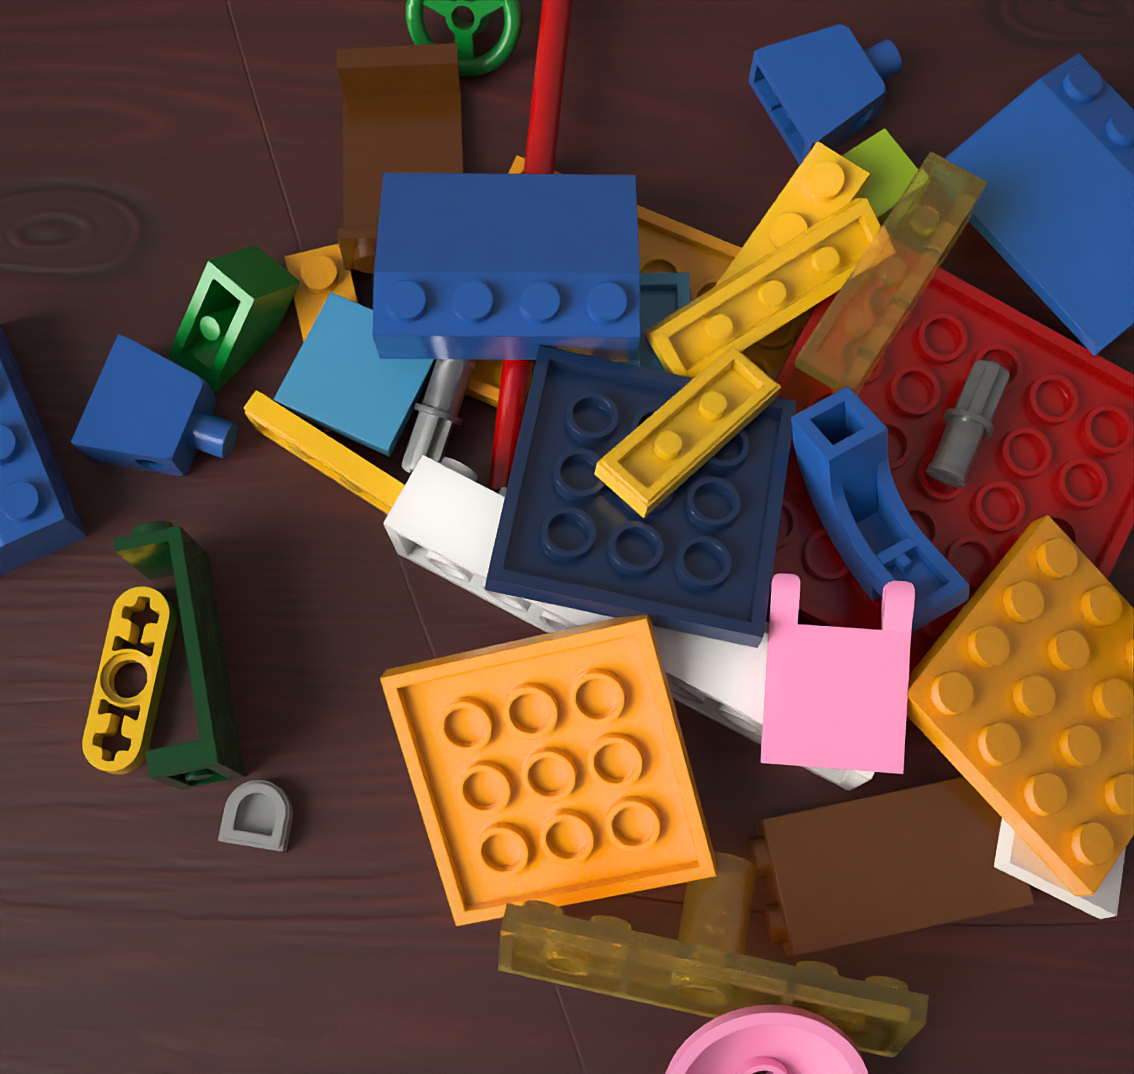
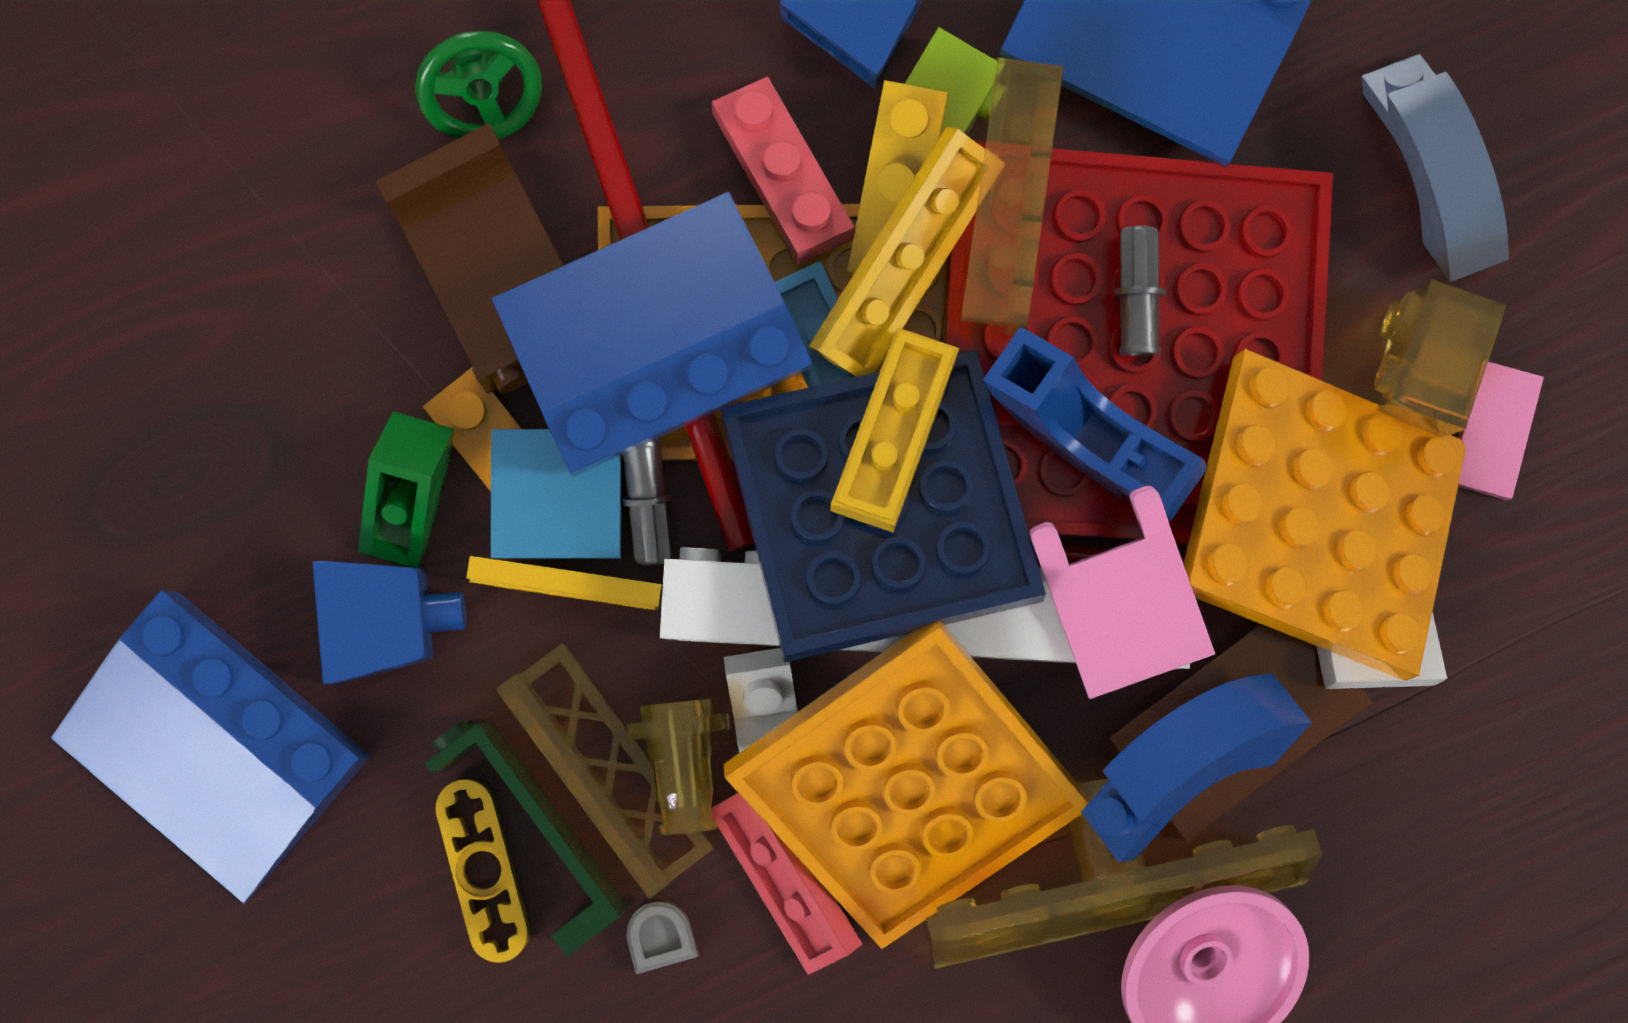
camera: 30 degrees left, 10 degrees up
(259, 647) = (581, 778): none -> clear yellow fence
(357, 648) = (680, 754): none -> clear yellow piece
(398, 839) = (792, 894): none -> coral plate
(457, 622) = (759, 693): none -> white bracket
(692, 194) = (783, 170): none -> coral plate
(835, 857) = (1187, 751): none -> blue arch

